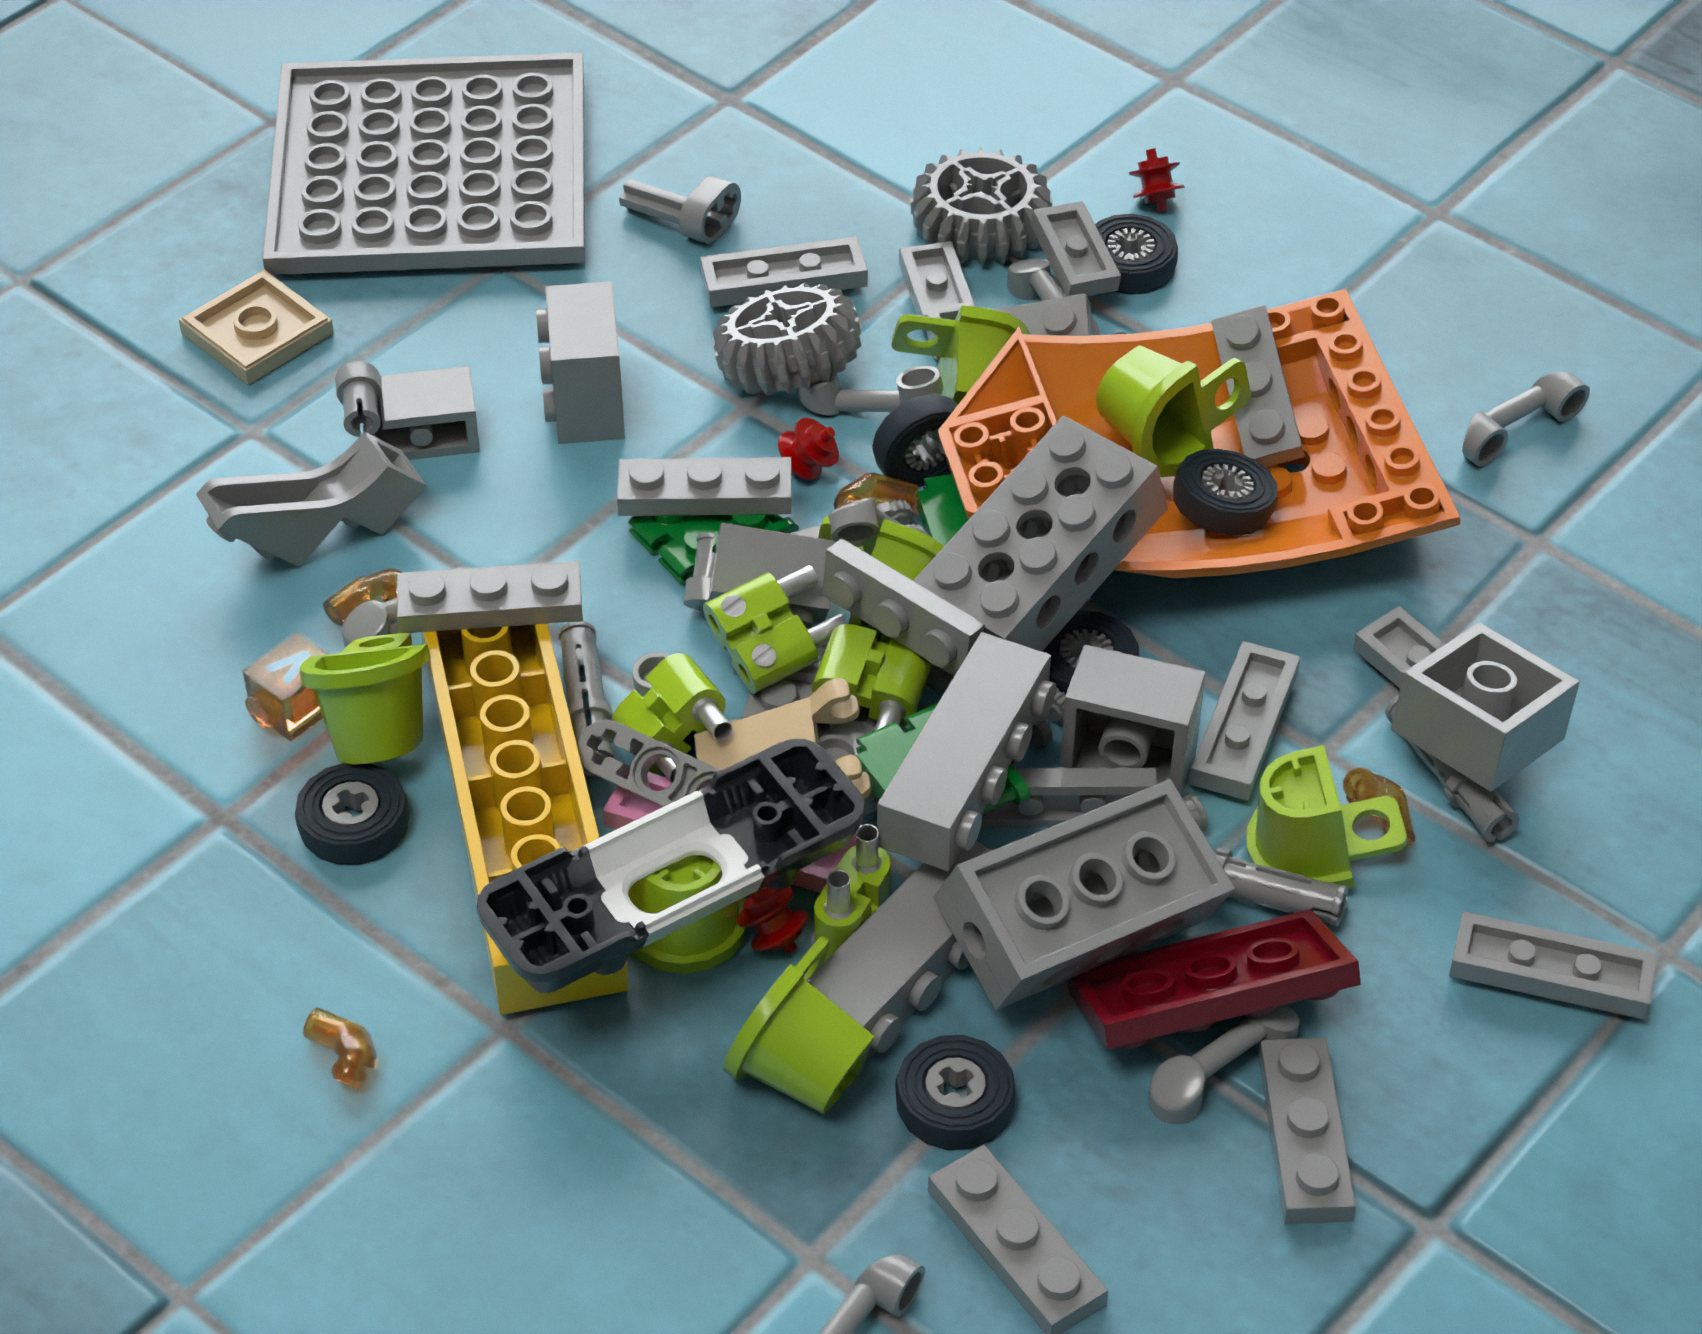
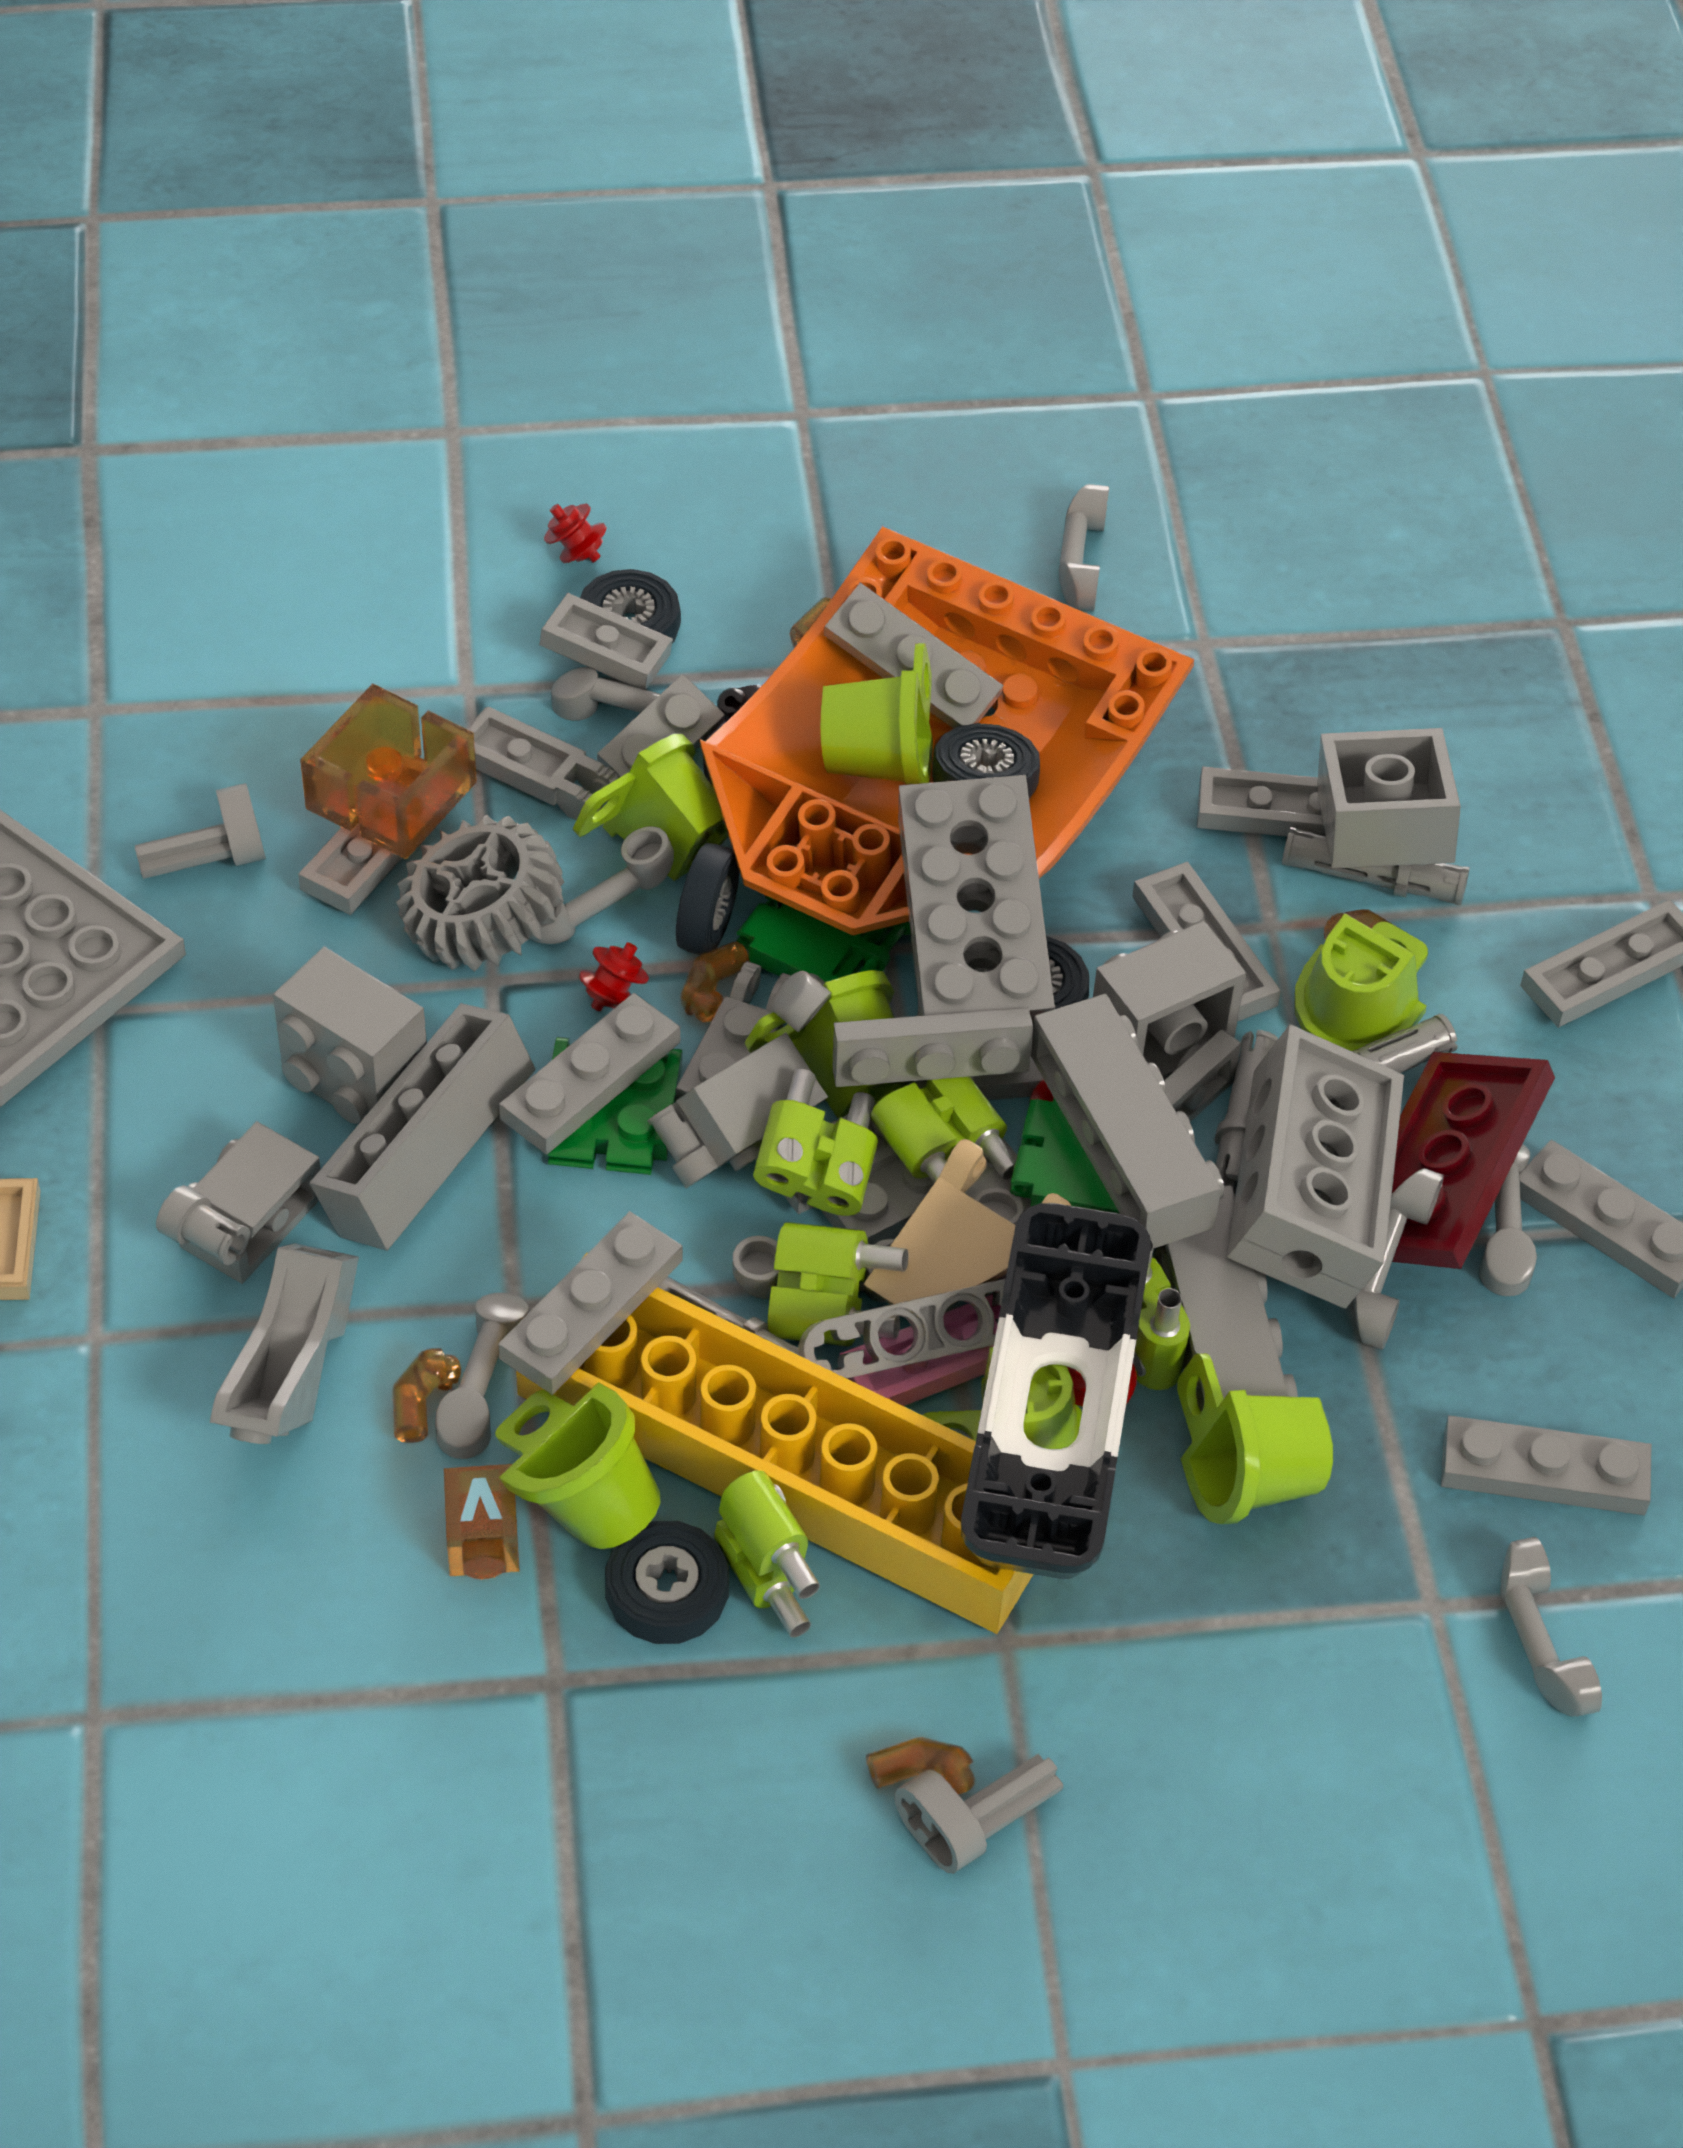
camera: 50 degrees left, 5 degrees up
(305, 1096) = (956, 1829): none -> light grey piece
(414, 830) = (766, 1548): none -> lime piece
(561, 442) = (422, 1126): none -> light grey brick
(811, 222) = (373, 773): none -> clear orange piece
(950, 1119) = (1349, 1406): black bush -> none
(979, 204) = (466, 655): light grey gear -> none
(1124, 969) = (1411, 1200): none -> light grey bar

